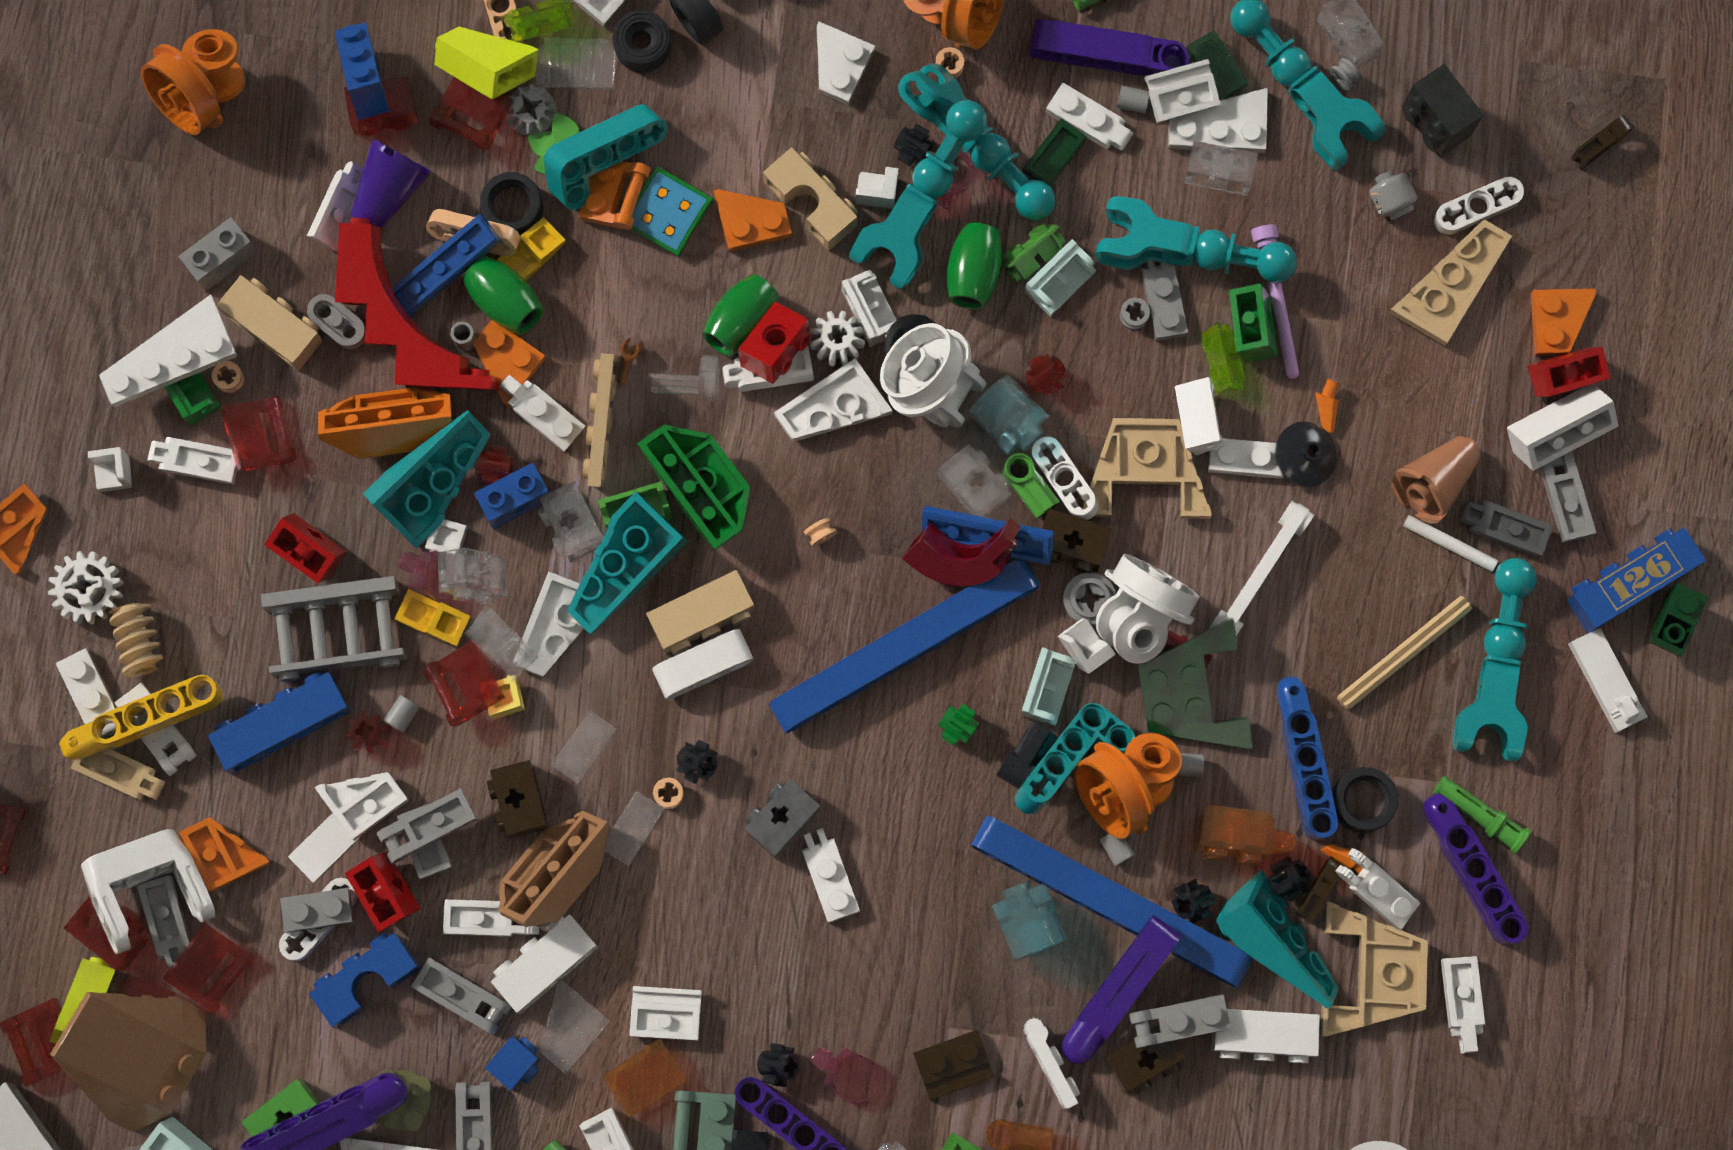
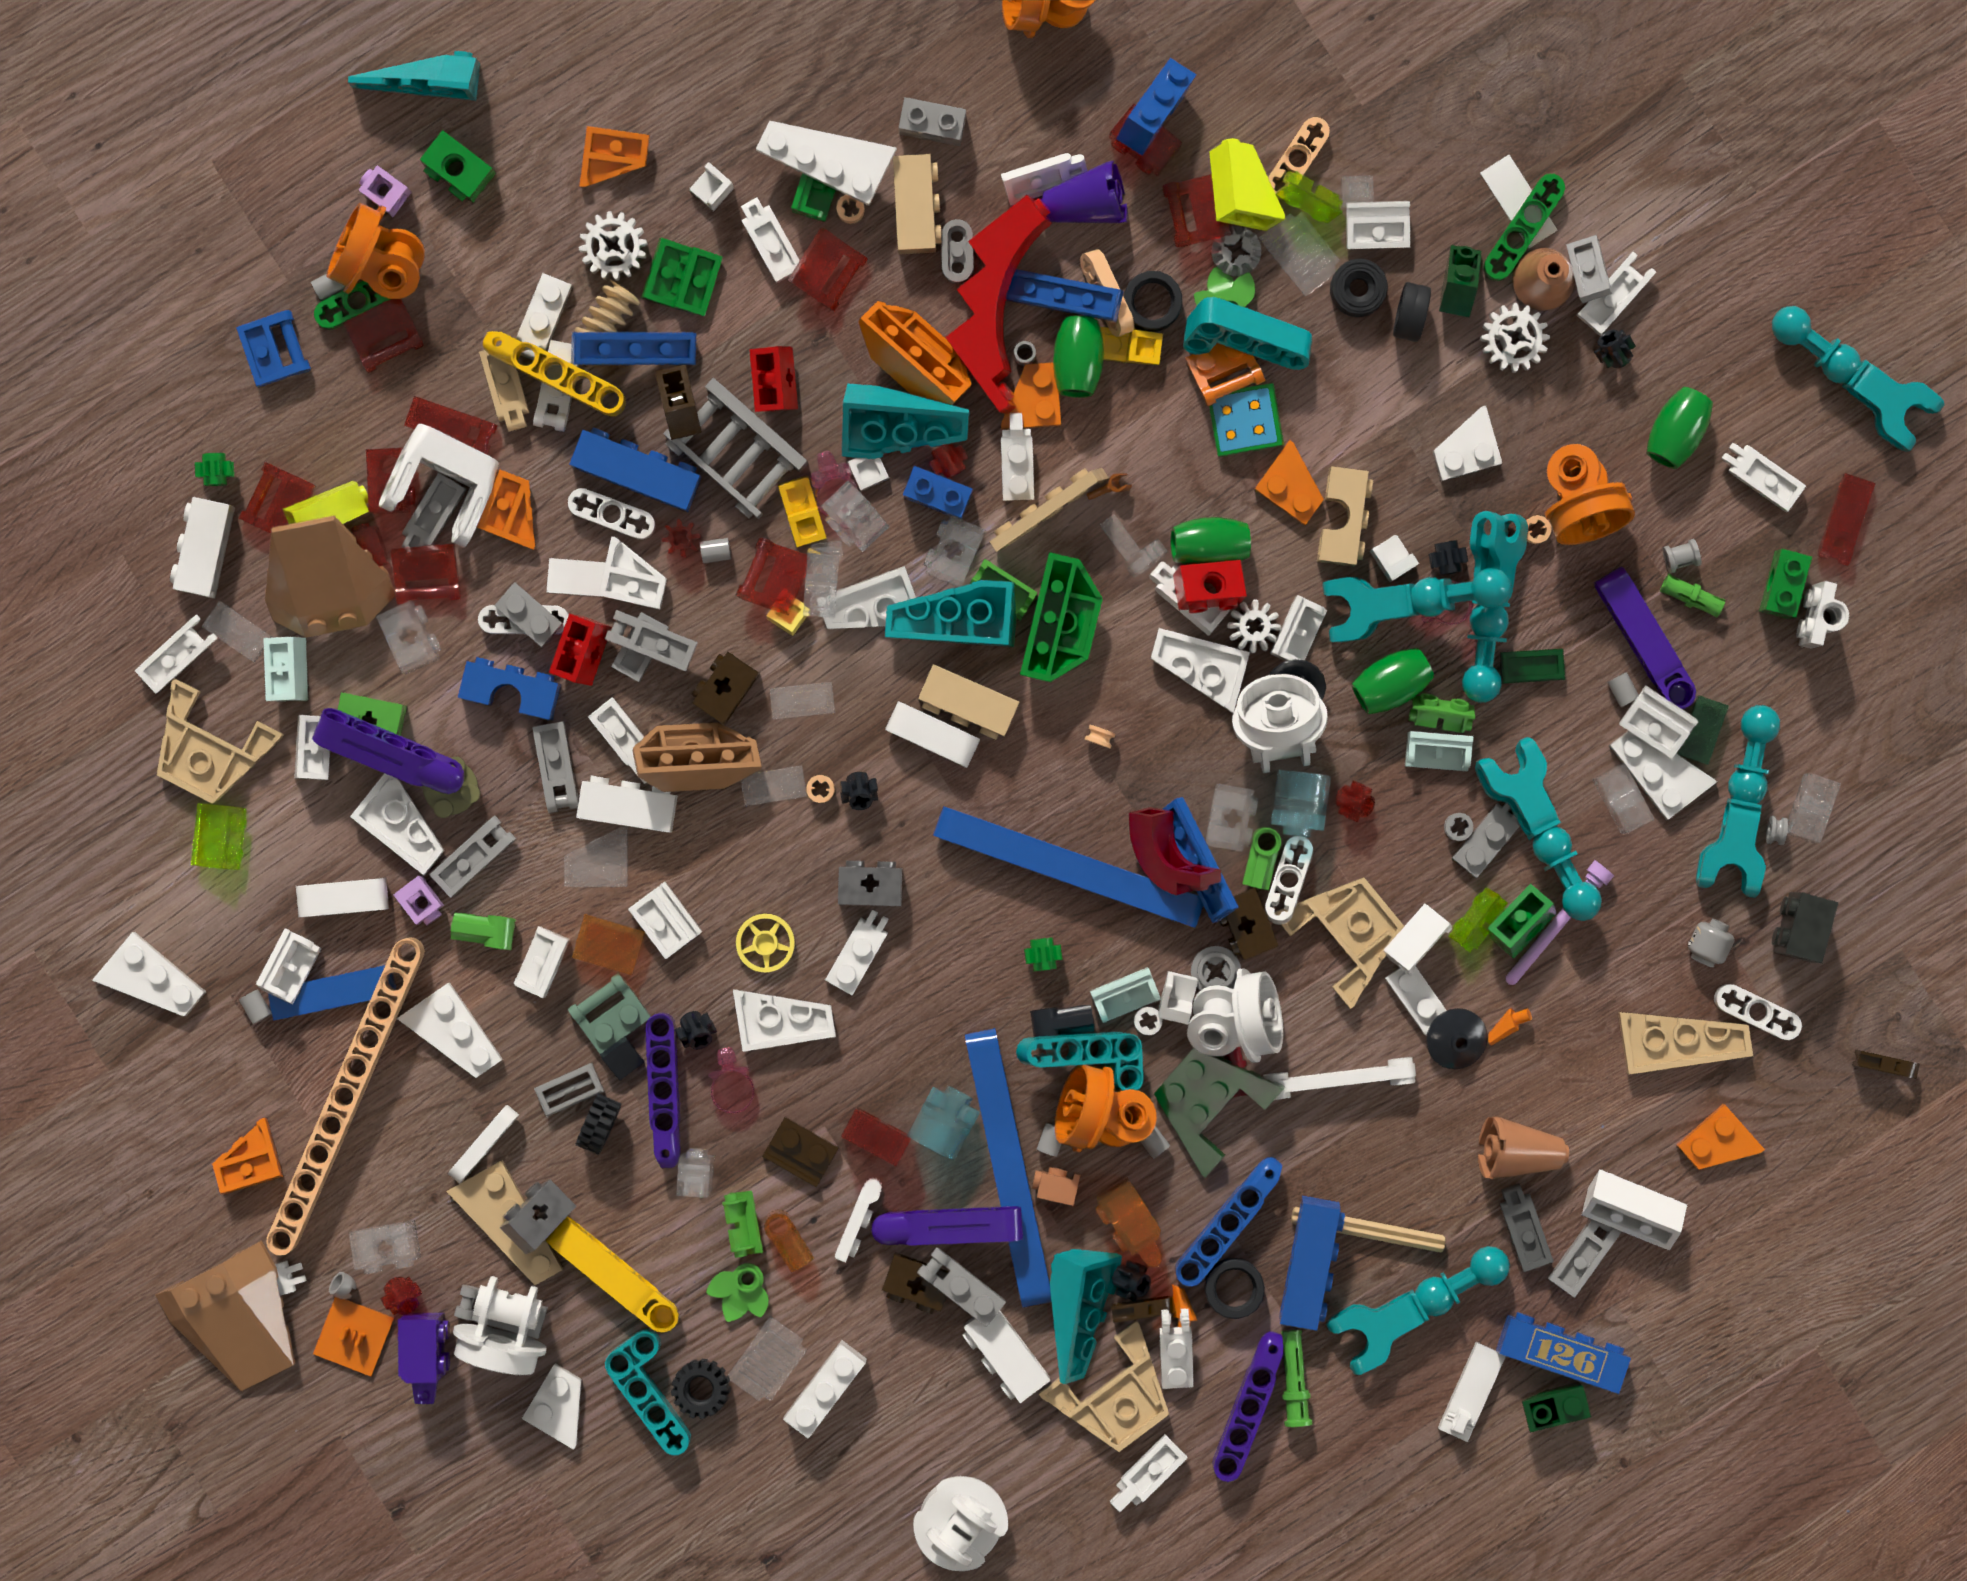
camera: 55 degrees right, 10 degrees up
(105, 838) = (450, 422): none -> clear red plate
(160, 555) = (682, 277): none -> green slope
(180, 638) = (633, 348): none -> blue tile
(227, 1028) = (395, 625): none -> clear brick
(255, 638) = (678, 402): none -> dark brown brick
(311, 778) = (587, 513): none -> white beam
(515, 1063) = (542, 845): blue brick -> none
(755, 946) = (765, 943): none -> light yellow wheel
(830, 989) = (780, 1021): none -> white wing
(994, 987) = (876, 1136): none -> clear red brick
(1089, 118) = (1581, 668): white hinge -> none
(1091, 695) = (1145, 1030): none -> white bush
(1159, 874) = (1056, 1185): none -> nougat brick
(1193, 901) = (1057, 1226): black gear -> none
(1395, 719) = (1310, 1263): none -> blue brick
(1450, 543) = (1479, 1197): white bar -> none
(1569, 371) = (1680, 1181): red brick -> none

